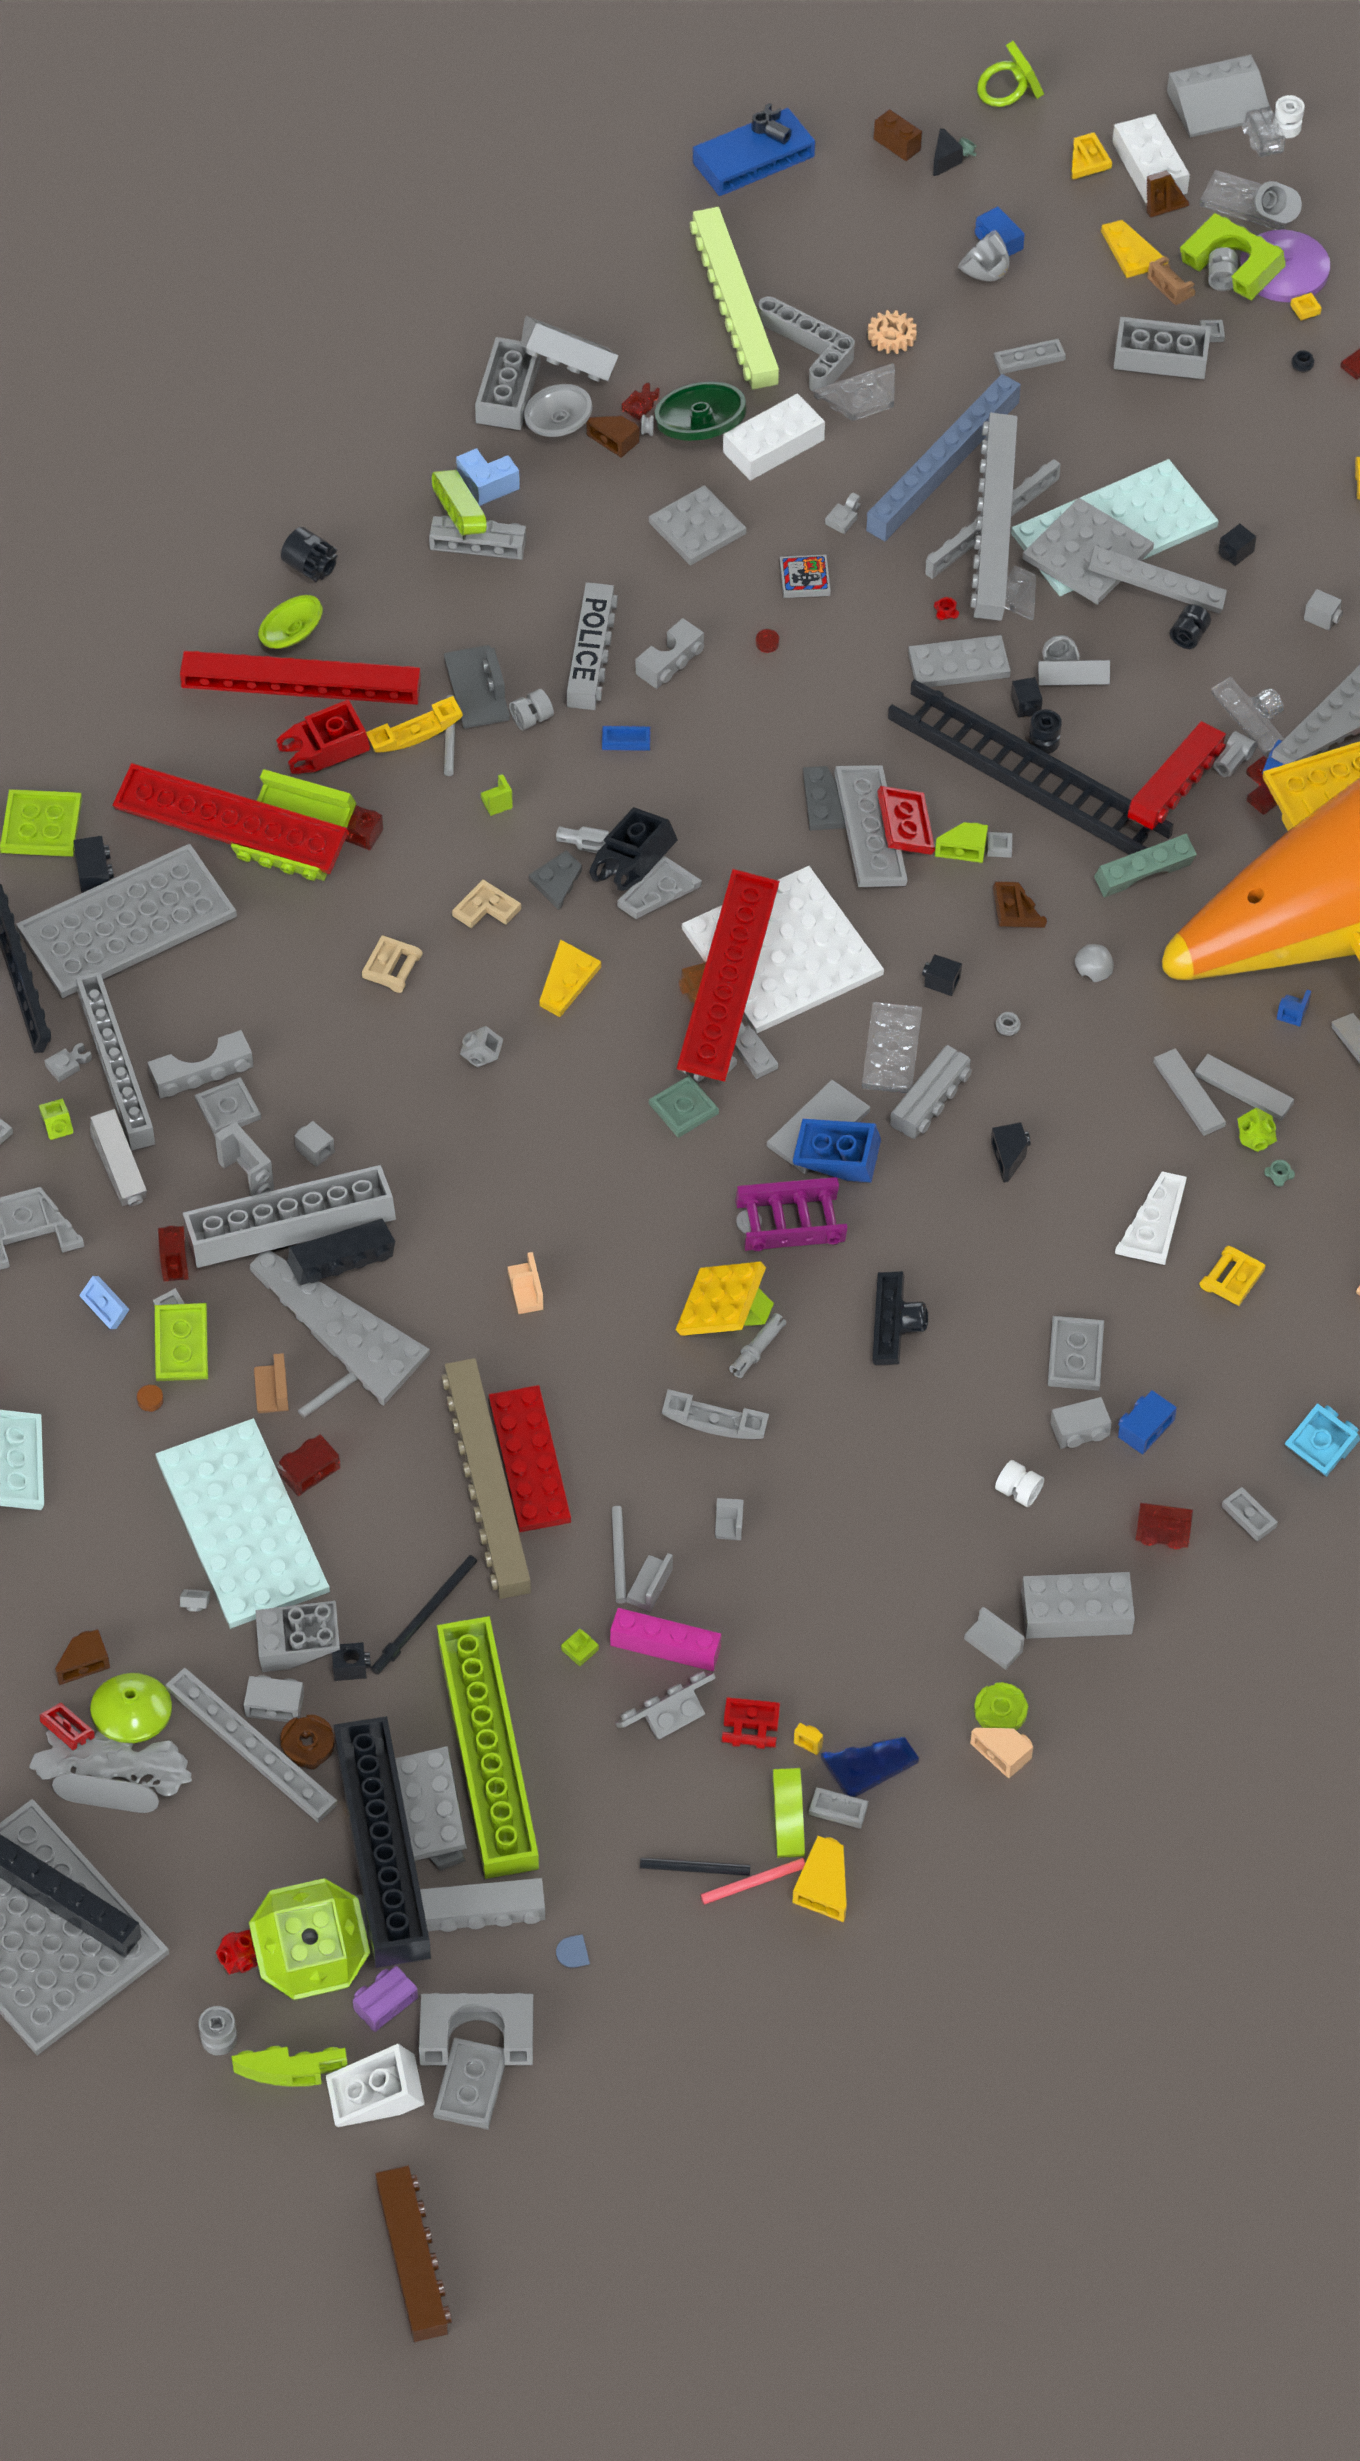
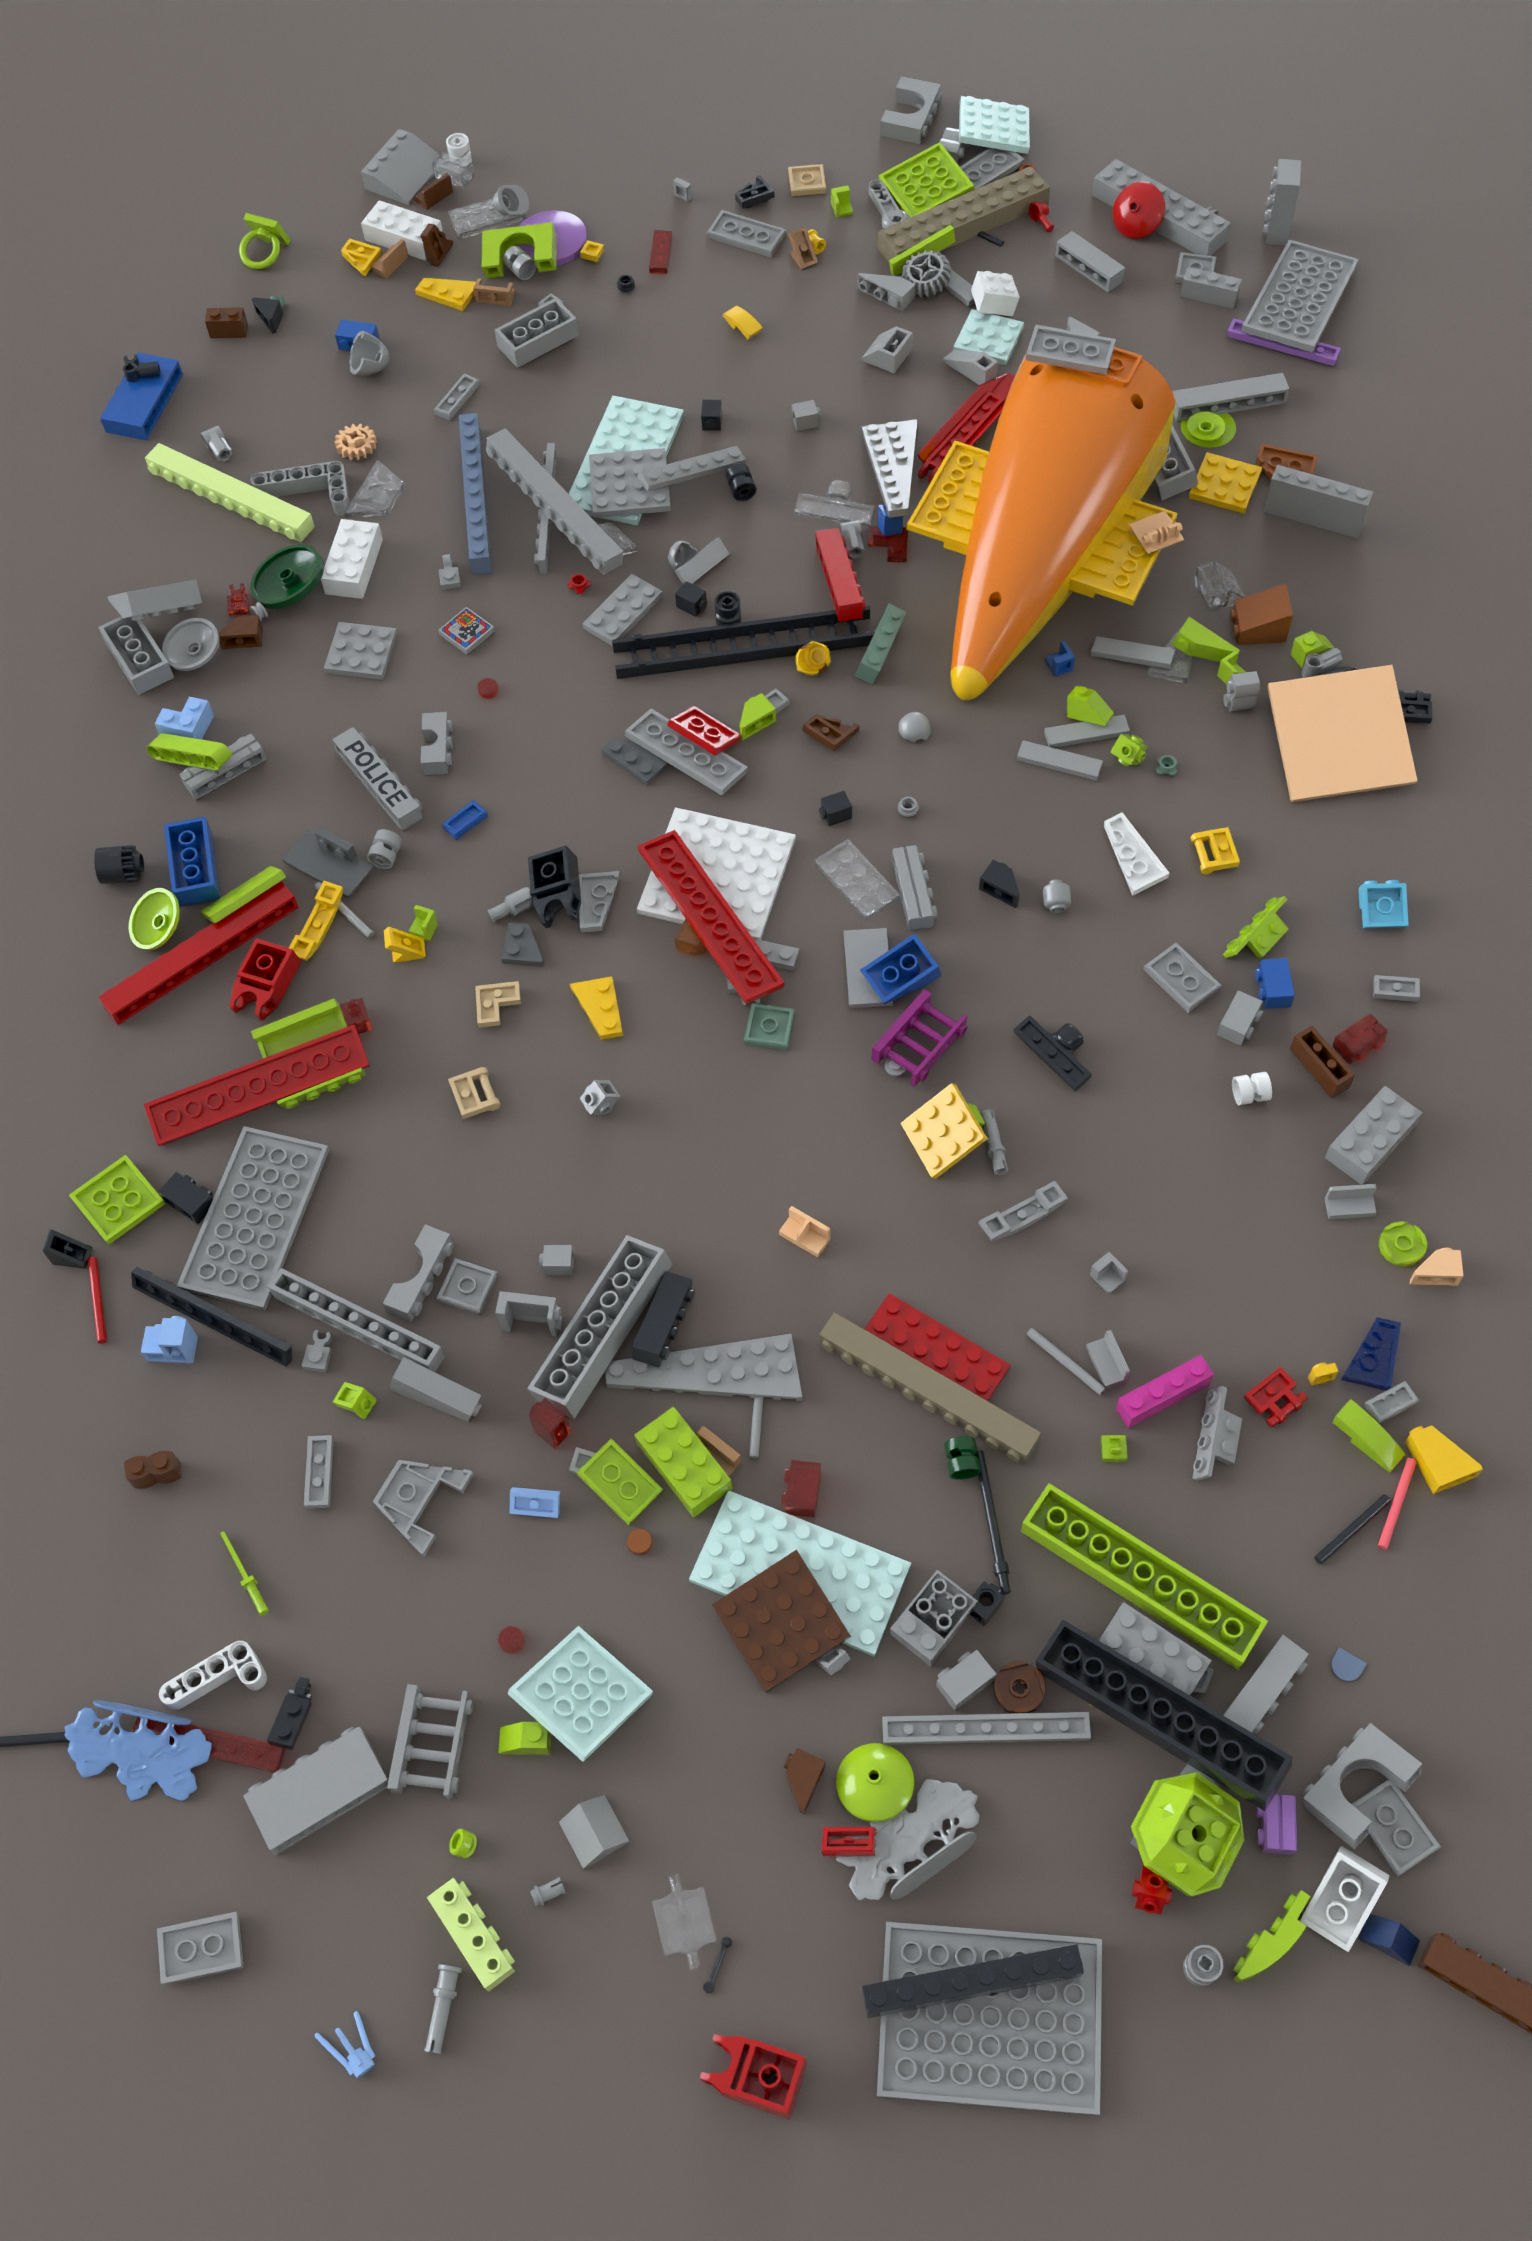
camera: 40 degrees left, 5 degrees up
(186, 1538) = (781, 1621): none -> reddish brown plate
(242, 1368) = (683, 1462): none -> lime brick
(368, 598) = (192, 861): none -> blue brick
(376, 2146) = (1390, 1938): none -> dark blue slope
(380, 656) = (243, 894): none -> lime tile
(449, 1550) = (962, 1457): none -> dark green wheel
(463, 801) = (404, 945): none -> yellow slope
(773, 240) = (215, 440): none -> light grey piece
(1044, 1198) = (1057, 896): none -> light grey head
(1069, 832) = (813, 658): none -> yellow hair
(1104, 1512) = (1322, 1061): none -> reddish brown brick
(1111, 181) = (390, 260): none -> medium nougat panel
(1188, 1375) = (1262, 932): none -> lime bracket
(1224, 142) = (435, 192): none -> reddish brown panel
(1264, 1064) = (1088, 706): none -> lime slope

